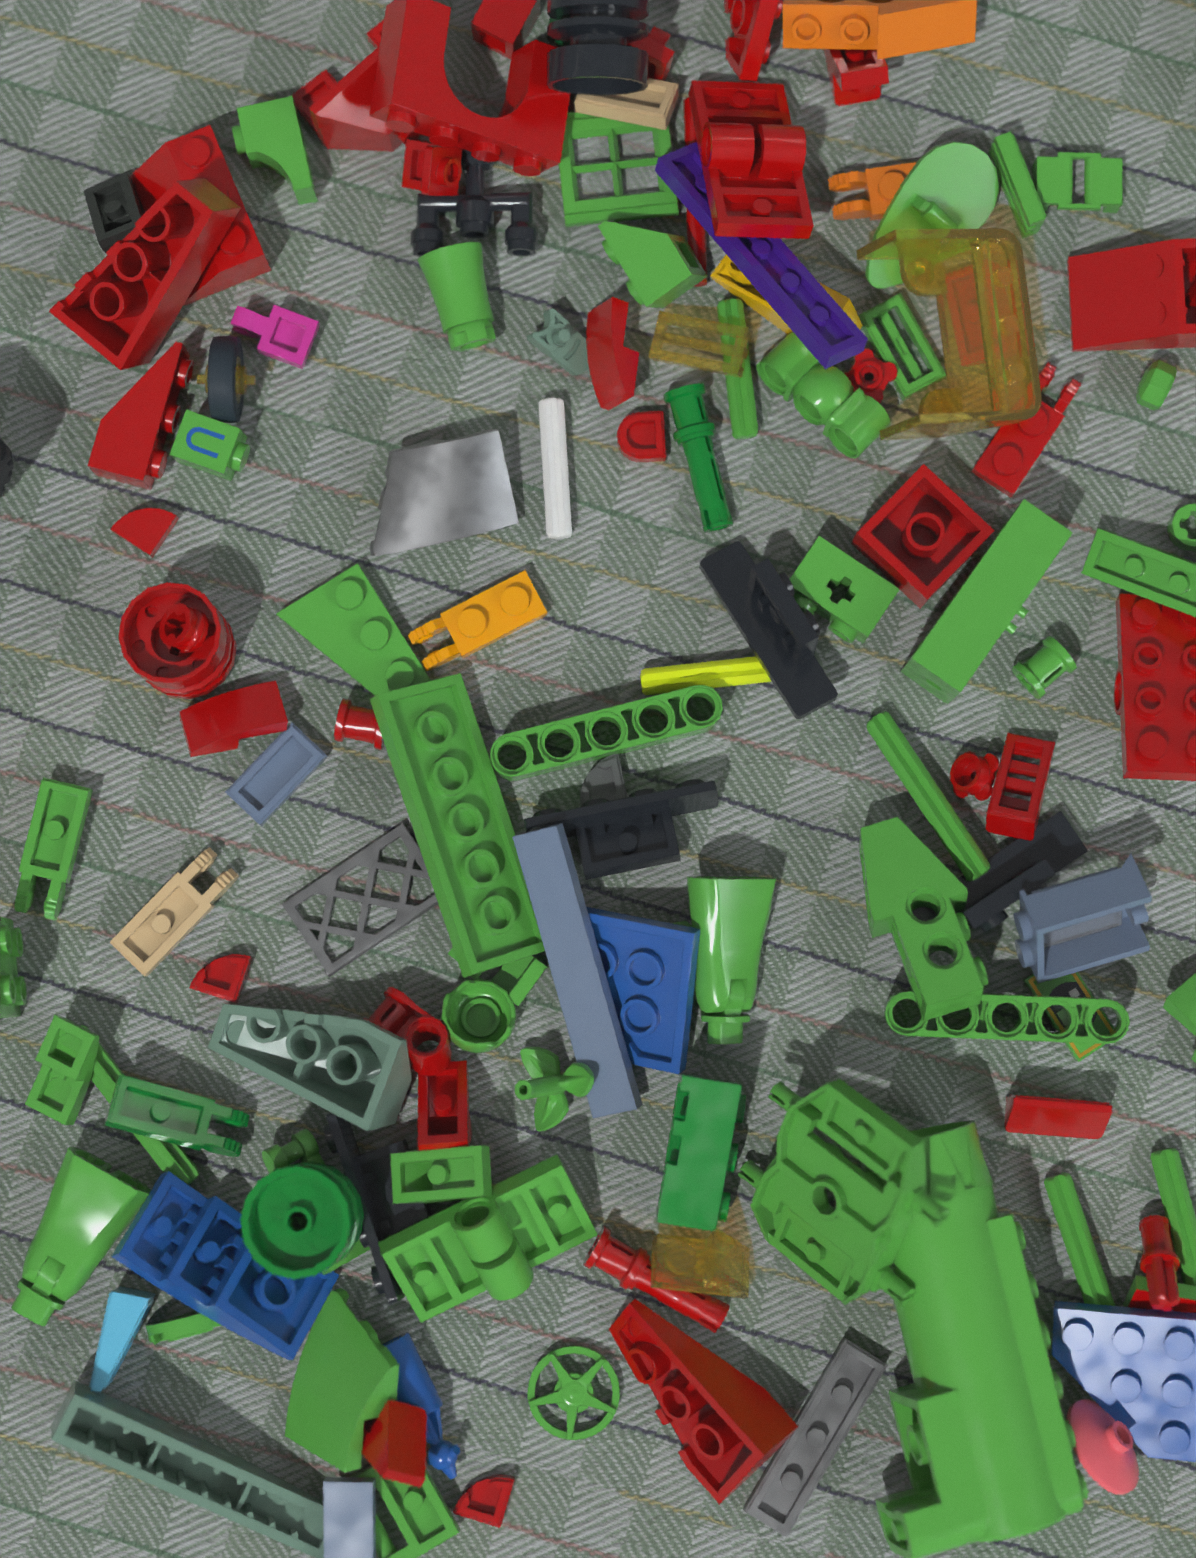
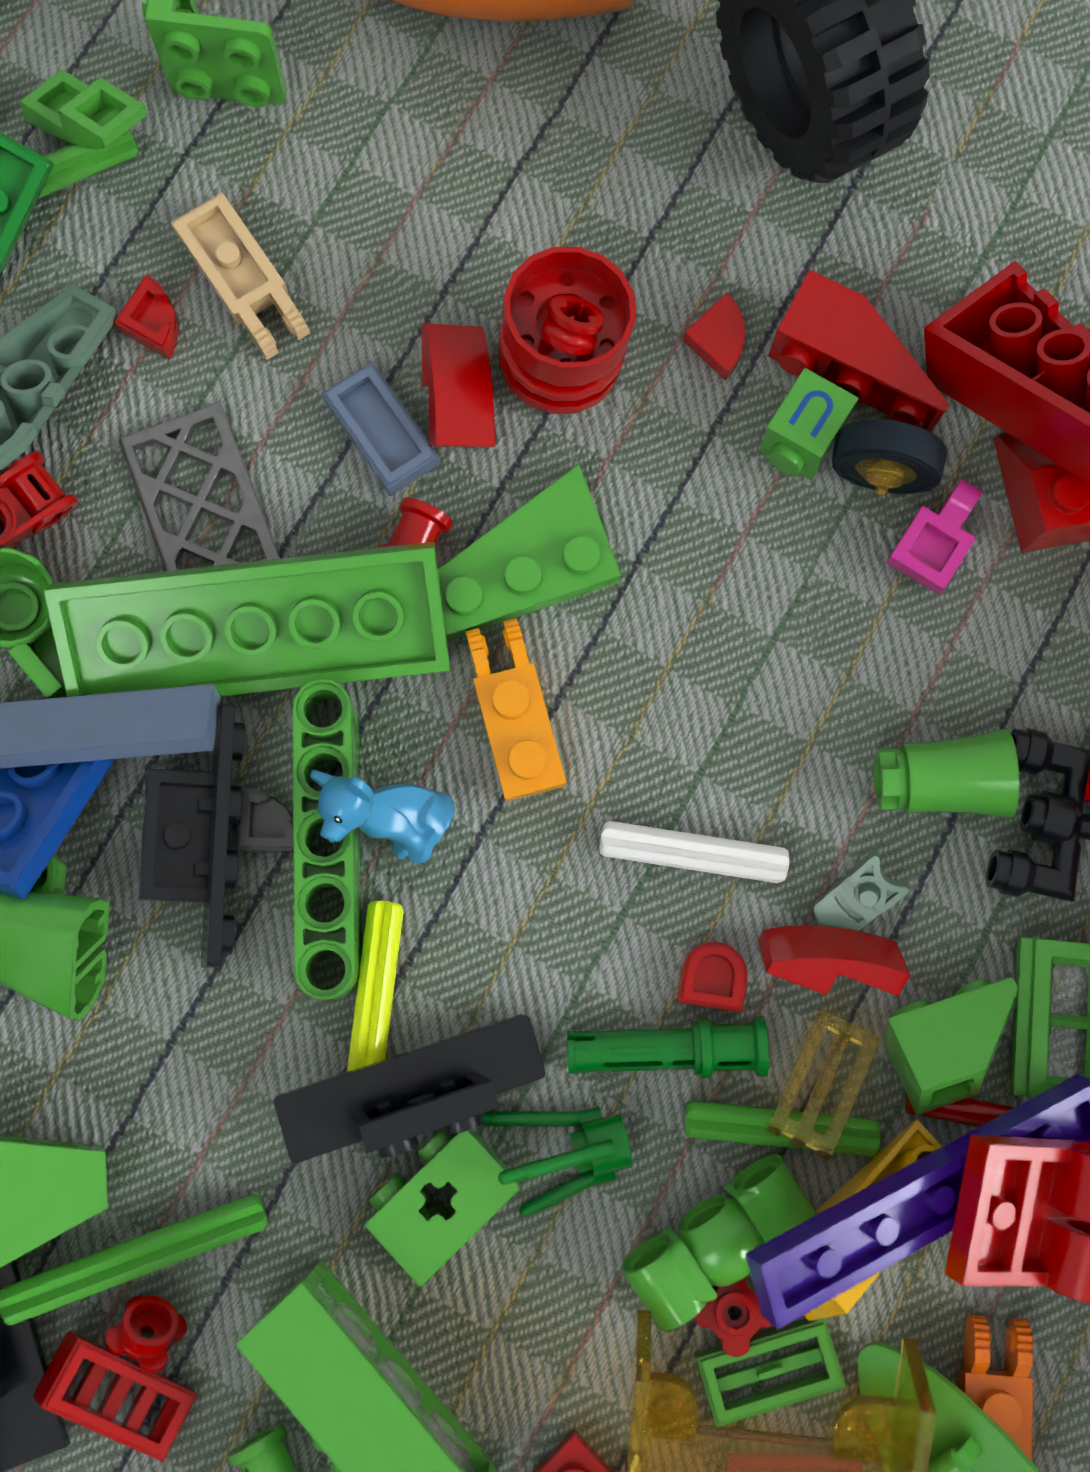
camera: 100 degrees right, 5 degrees down
(52, 843) = (358, 155): bright green hinge -> none
(444, 493) = (687, 699): flat silver slope -> none
(577, 685) = (401, 812): none -> dark azure animal
(783, 493) = (597, 1148): none -> green plant
(922, 536) = (488, 1340): red brick -> none

